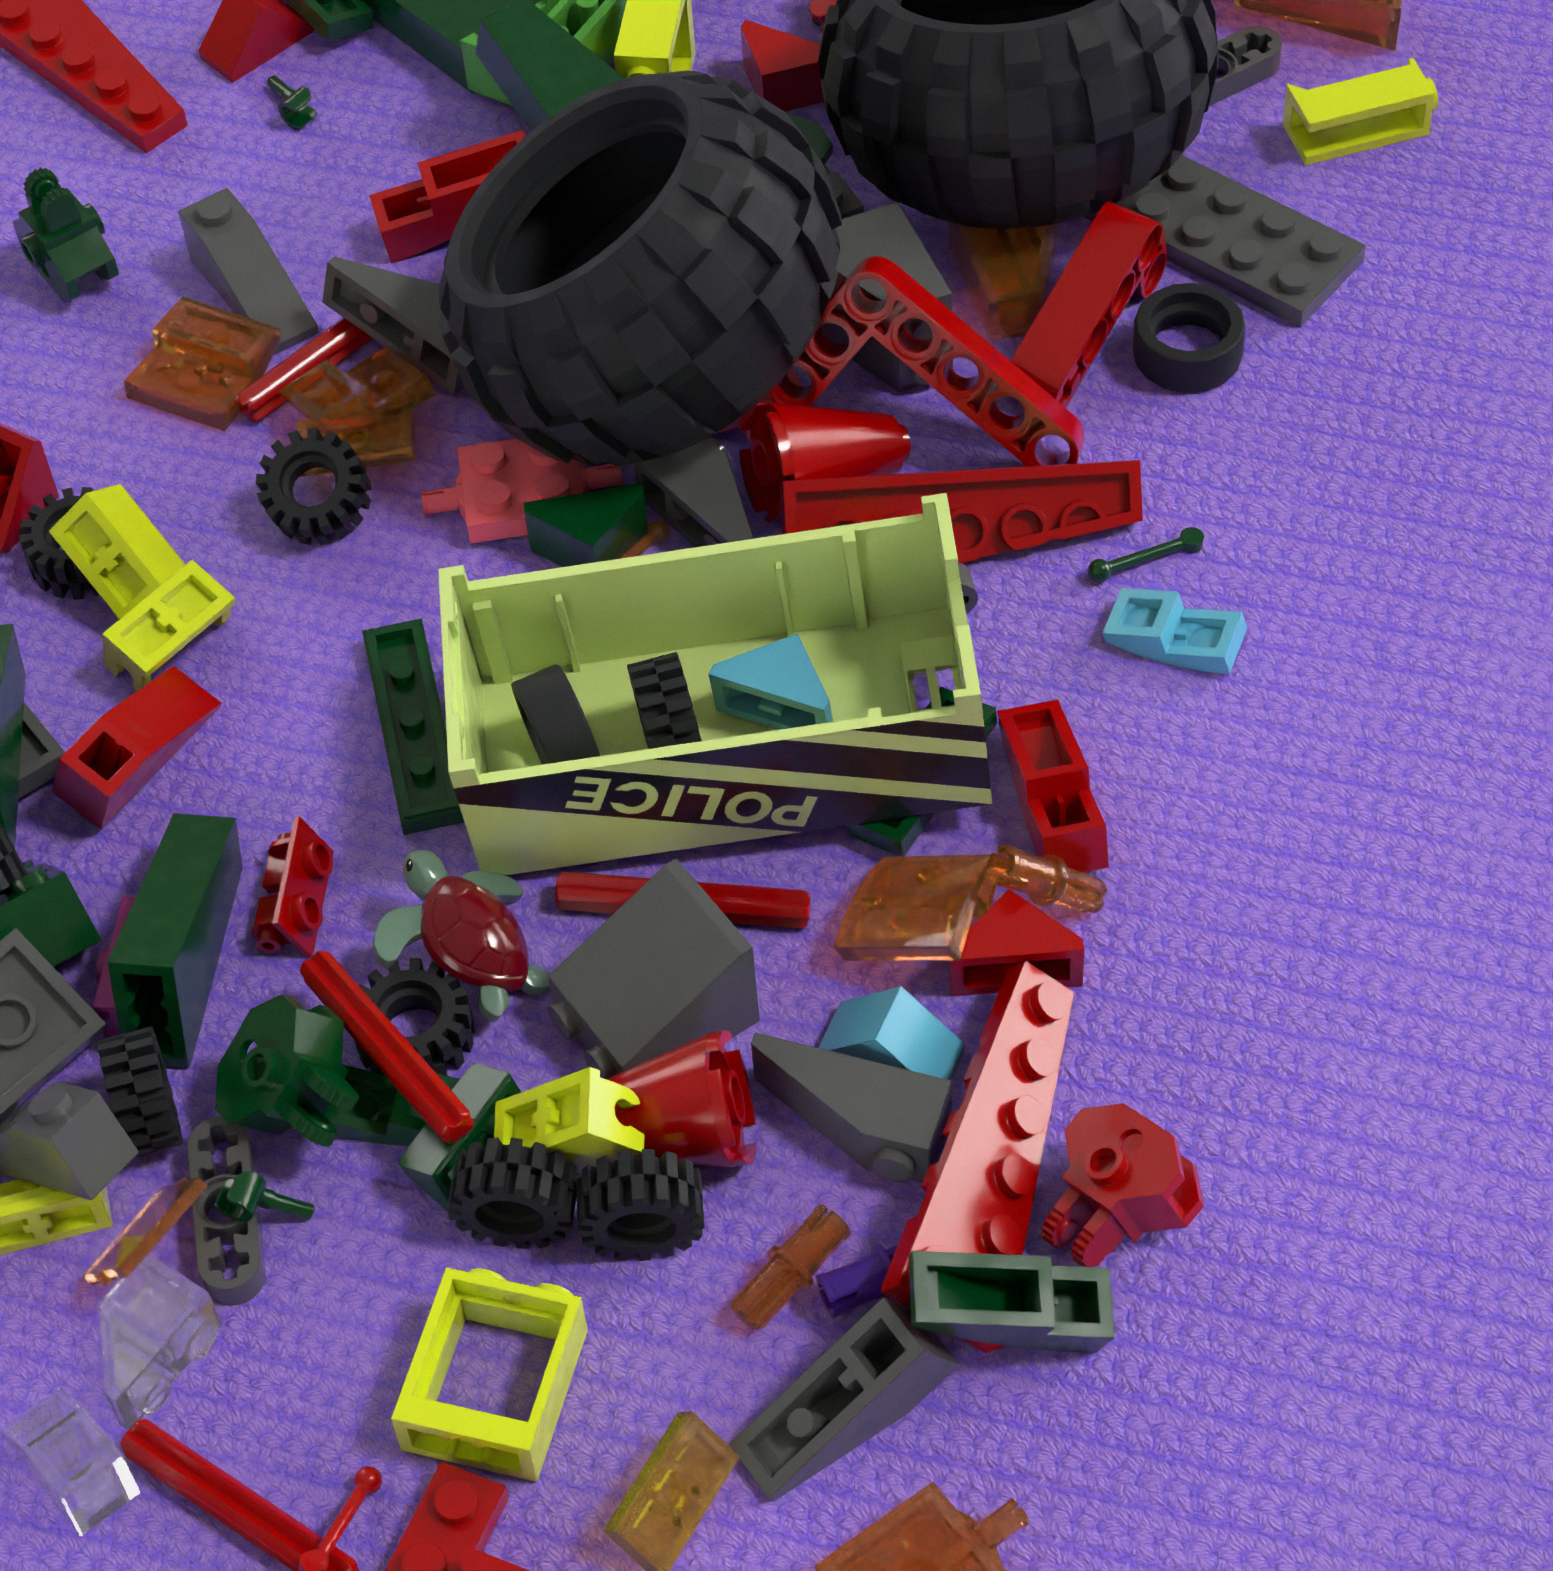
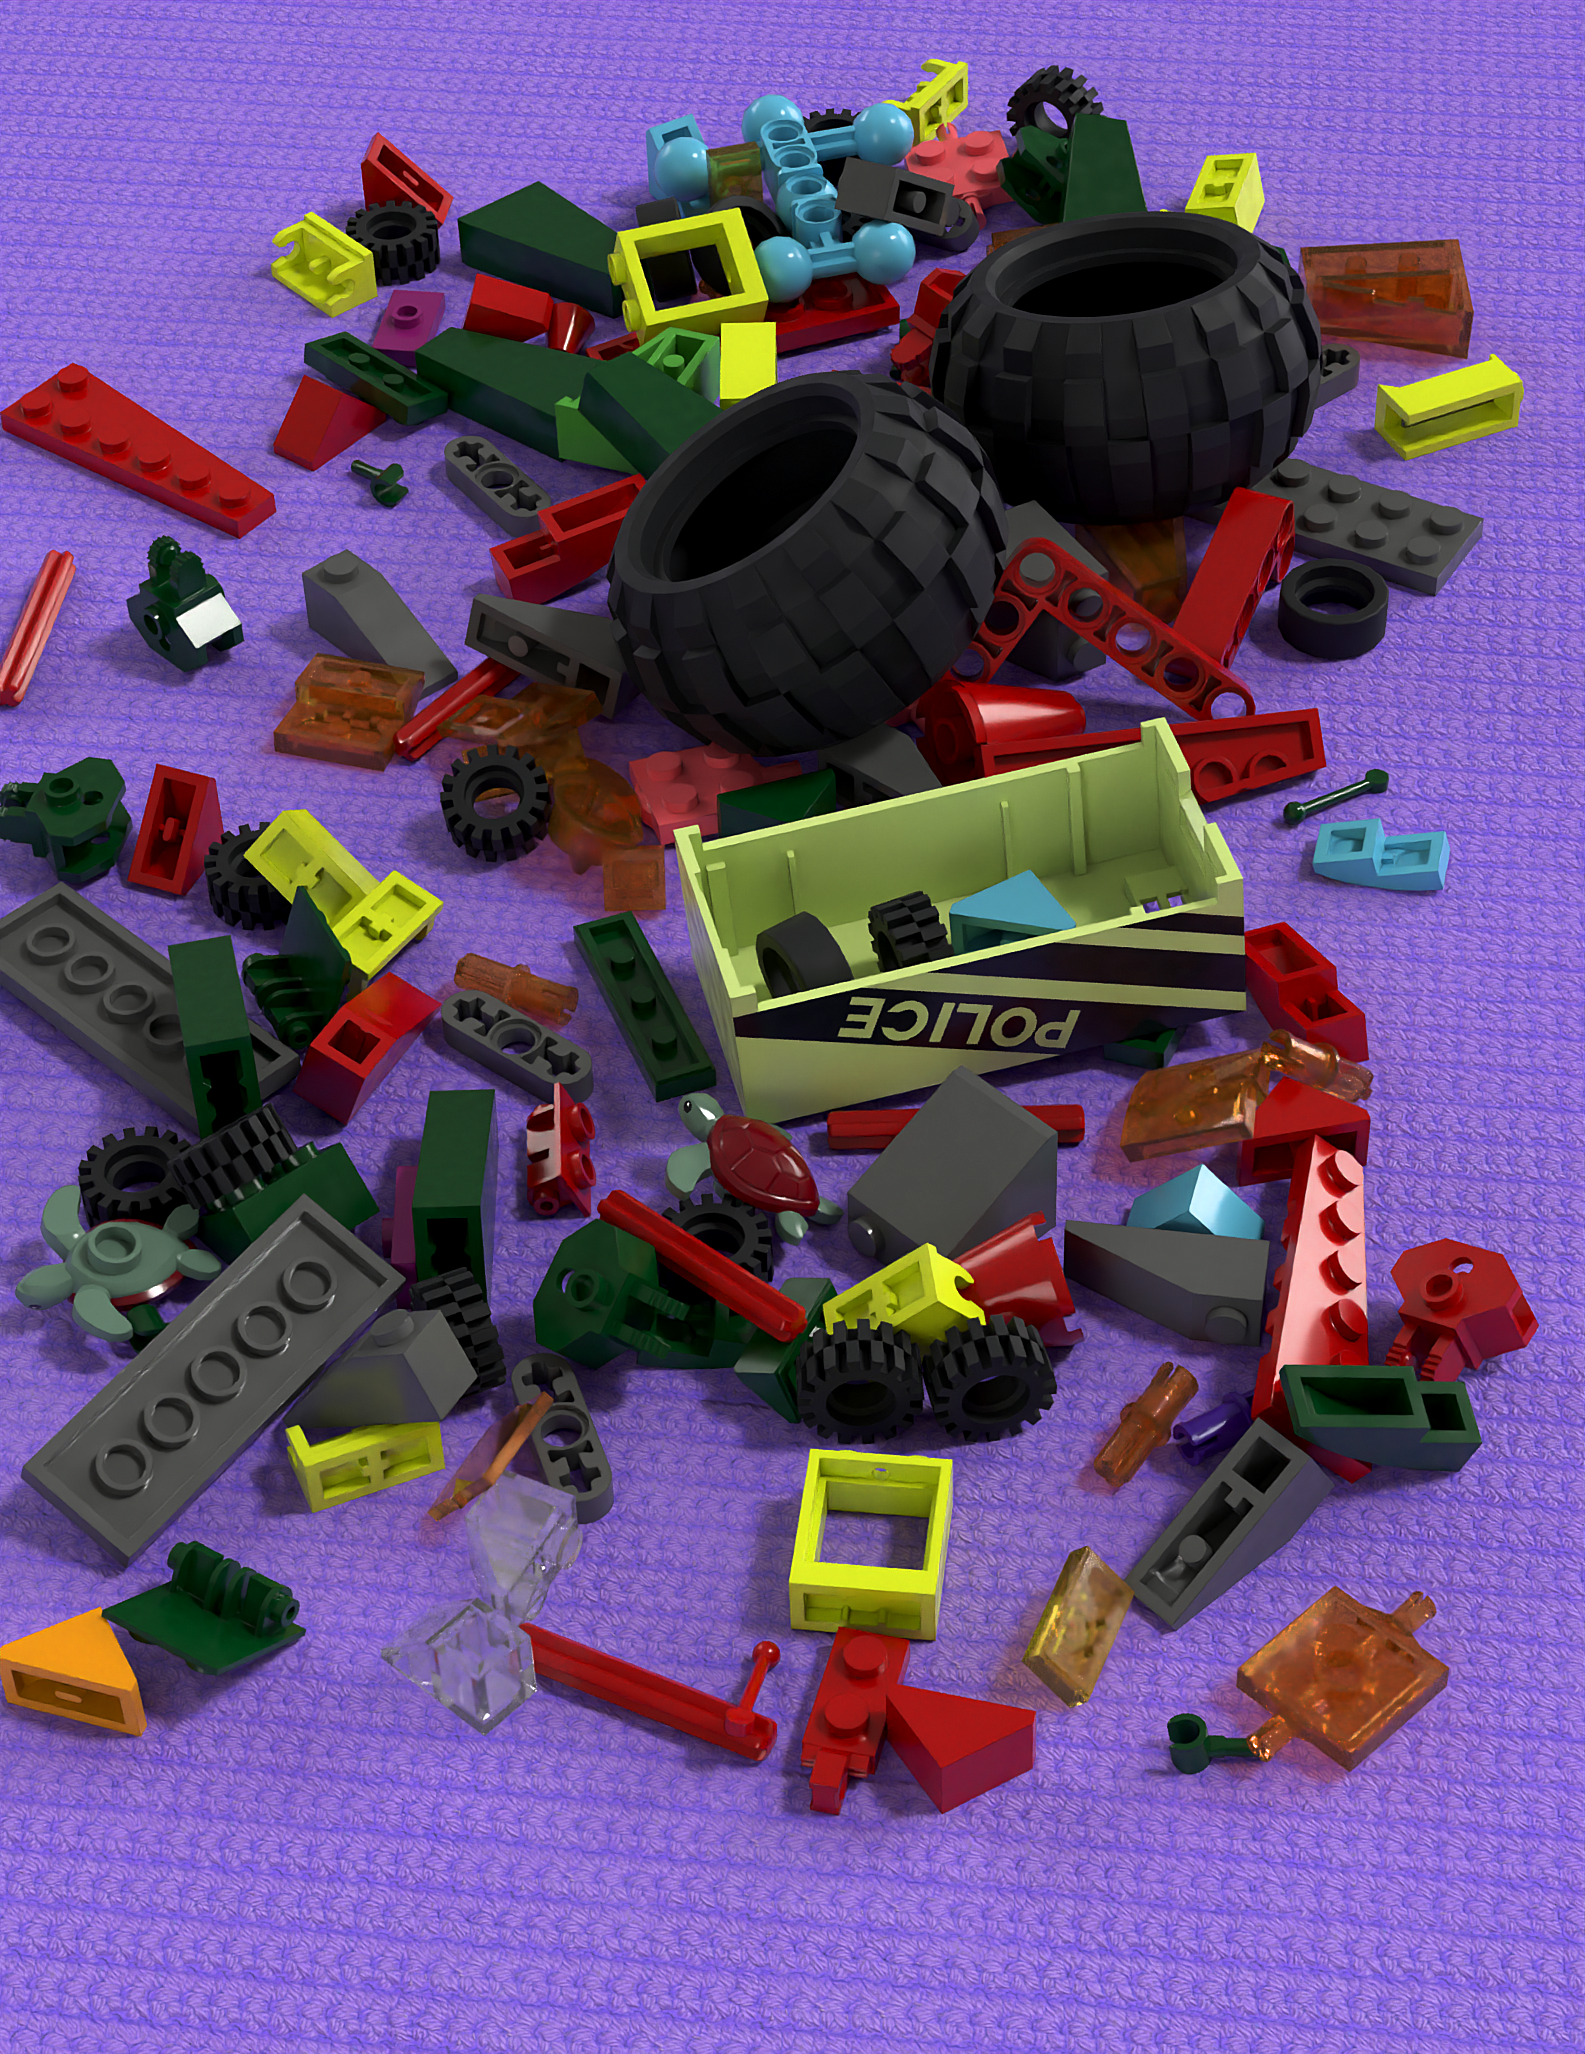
camera: 10 degrees left, 10 degrees down
(77, 672) = (307, 978): none -> dark green hinge
(248, 1190) = (588, 1414): dark green hand -> none
(274, 738) = (505, 1026): none -> dark grey beam
(291, 695) = (517, 987): none -> clear orange axle
(401, 100) = (494, 469): none -> dark grey beam
(404, 505) = (592, 811): none -> clear orange piece
(420, 580) = (634, 878): none -> clear orange tile

